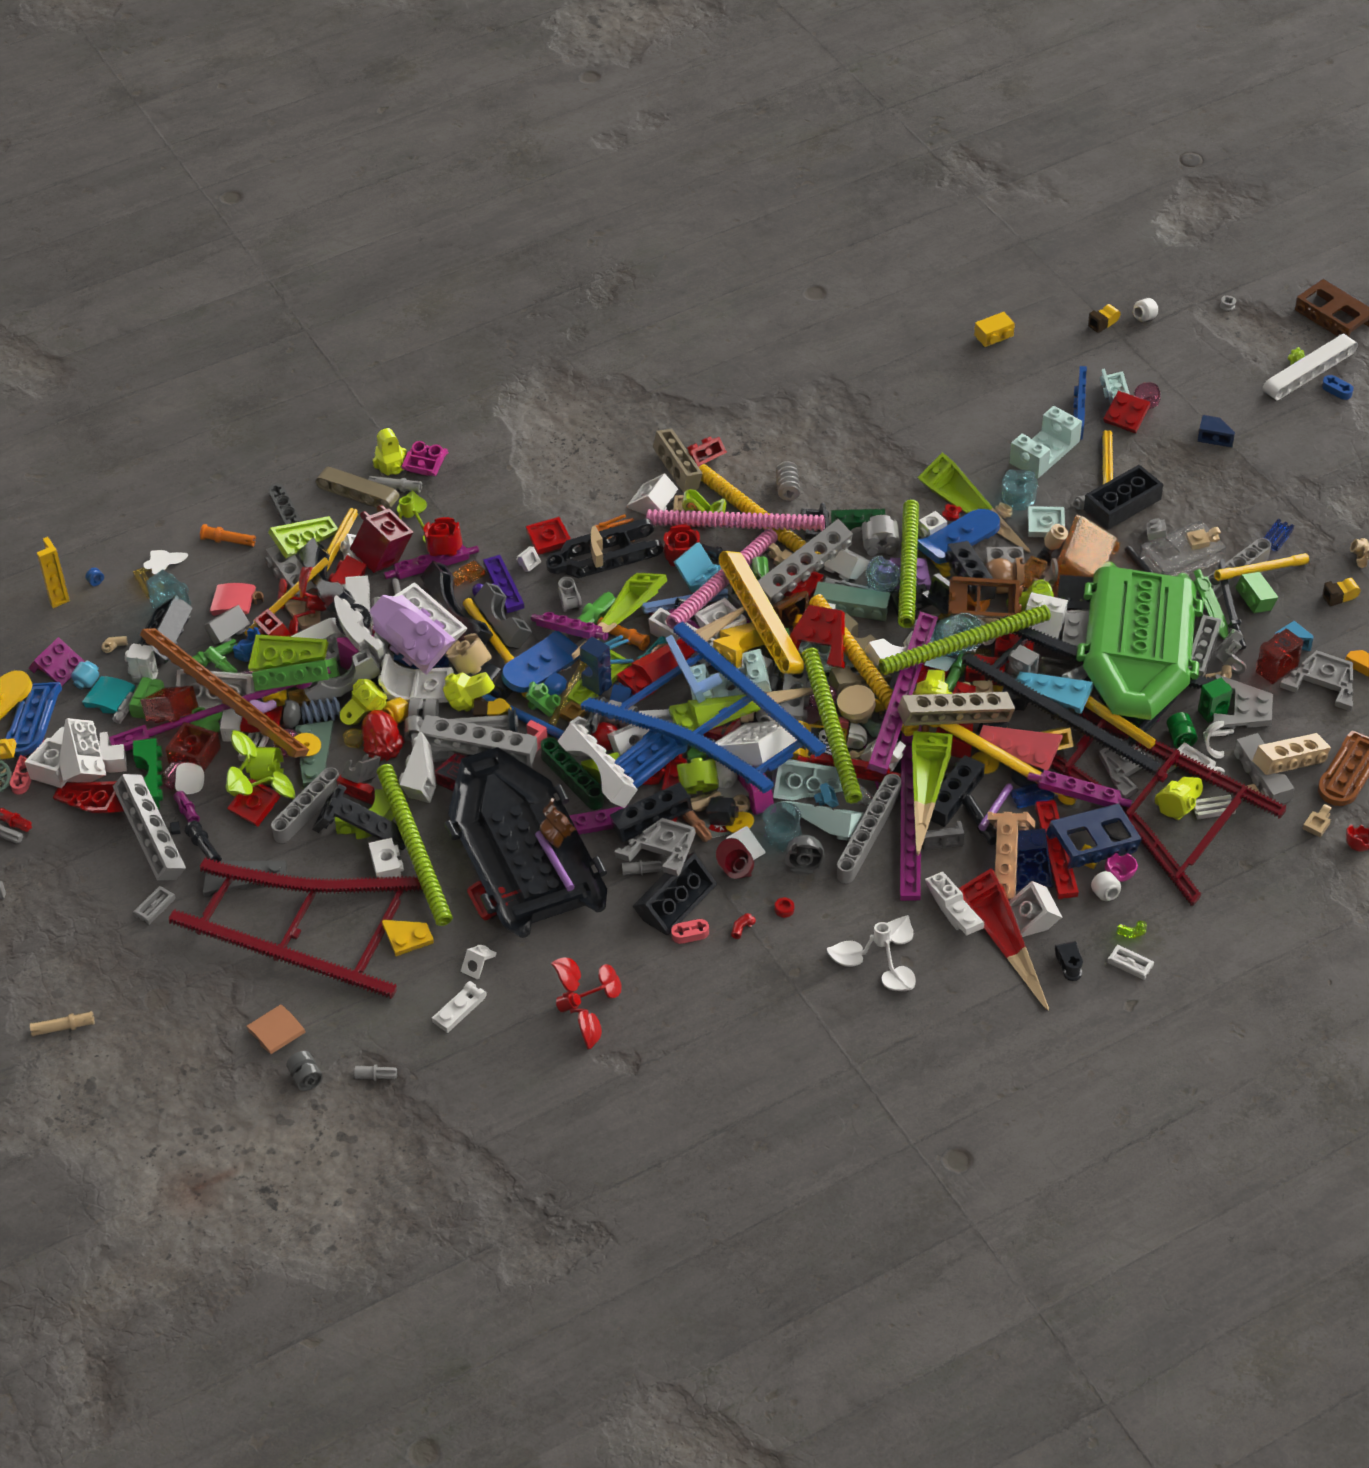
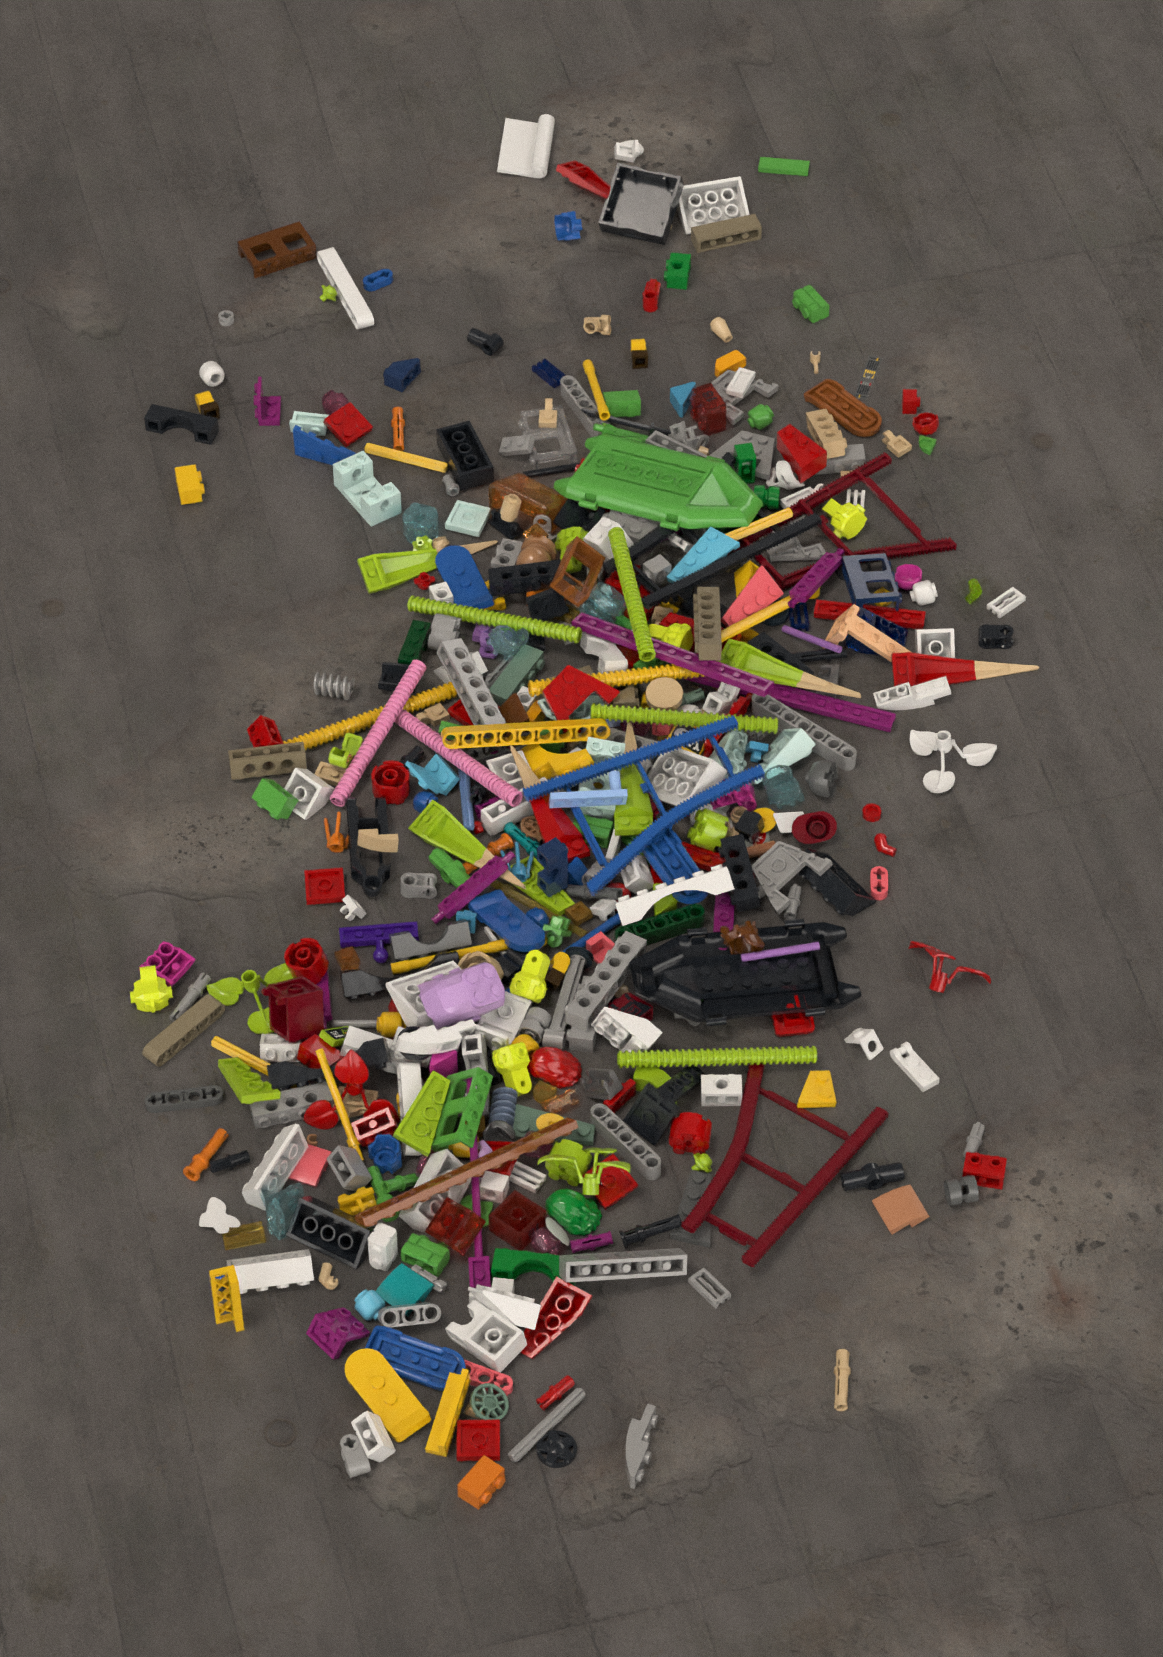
camera: 75 degrees left, 0 degrees up
(75, 699) = (399, 1314): none -> light grey beam
(111, 603) = (273, 1270): none -> white slope
(194, 640) = (357, 1202): none -> yellow hips
(211, 786) = (573, 1211): none -> green piece
(213, 575) = (276, 1166): none -> white slope
(222, 552) = (230, 1161): none -> black axle
(294, 865) = (702, 1162): none -> lime plant
(309, 998) = (872, 1176): none -> black piece
(319, 846) = (690, 1133): none -> red brick
(336, 1086) = (987, 1169): none -> red brick
(339, 747) = (555, 1103): none -> clear orange plate
(376, 584) = (334, 1036): none -> tile
(536, 635) = (470, 917): none -> dark azure tile
(634, 476) = (275, 799): none -> bright green brick
(674, 578) = (422, 799): none -> blue piece
(677, 692) = (601, 829): none -> bright green brick
(994, 497) = (422, 543): none -> lime plant
(1070, 295) = (162, 418): none -> black arch
(1121, 350) = (268, 407): none -> magenta bracket
(1145, 446) = (398, 416): none -> orange pin
(1242, 735) = (801, 452): none -> red wedge
(1293, 479) = (488, 343): none -> black piece
(1298, 702) = (760, 417): none -> bright green head
(1335, 849) = (927, 444): none -> bright green tile
(1336, 674) = (740, 382): none -> white tile

